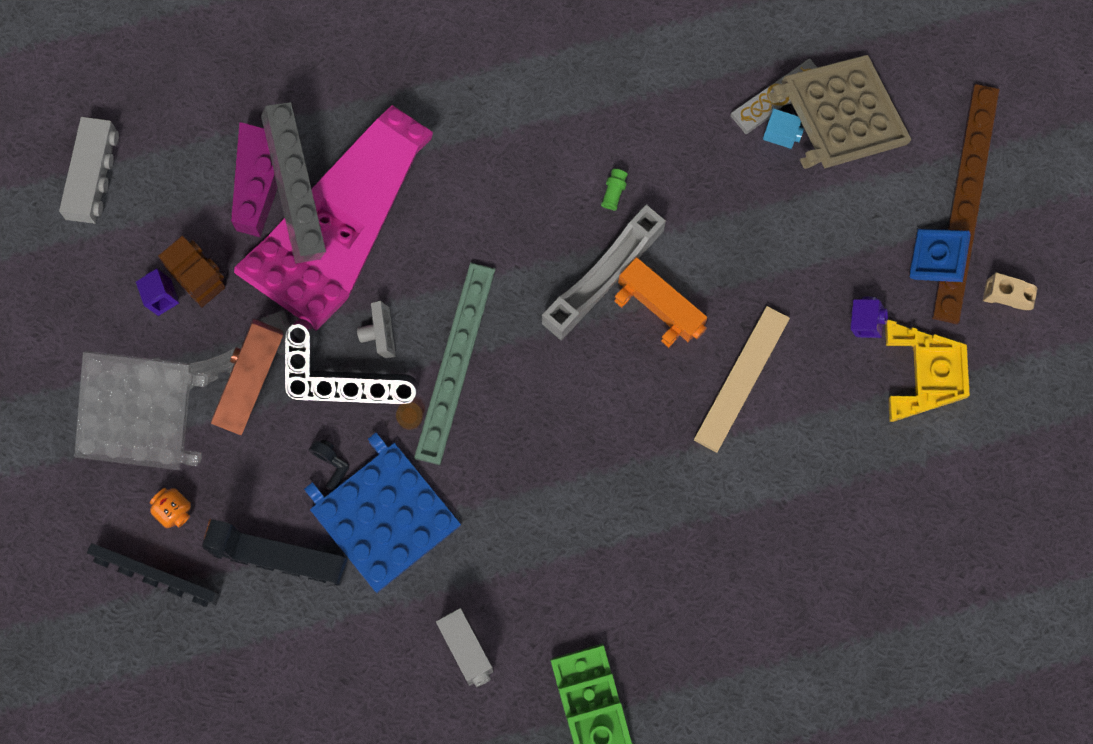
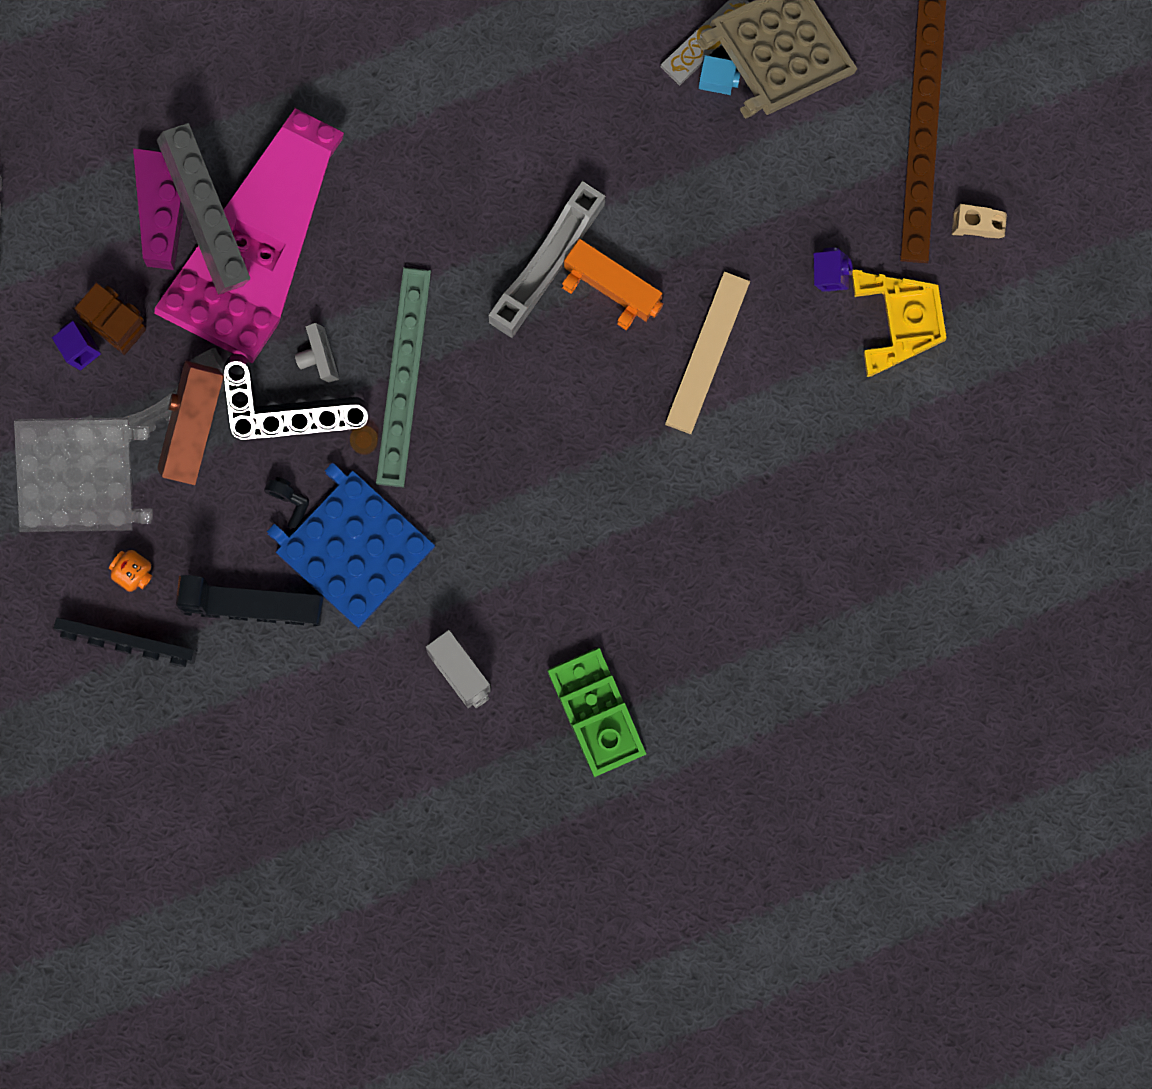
camera: 10 degrees left, 5 degrees up
(615, 185) = (546, 163): bright green pin -> none
(940, 255) = (900, 192): blue tile -> none

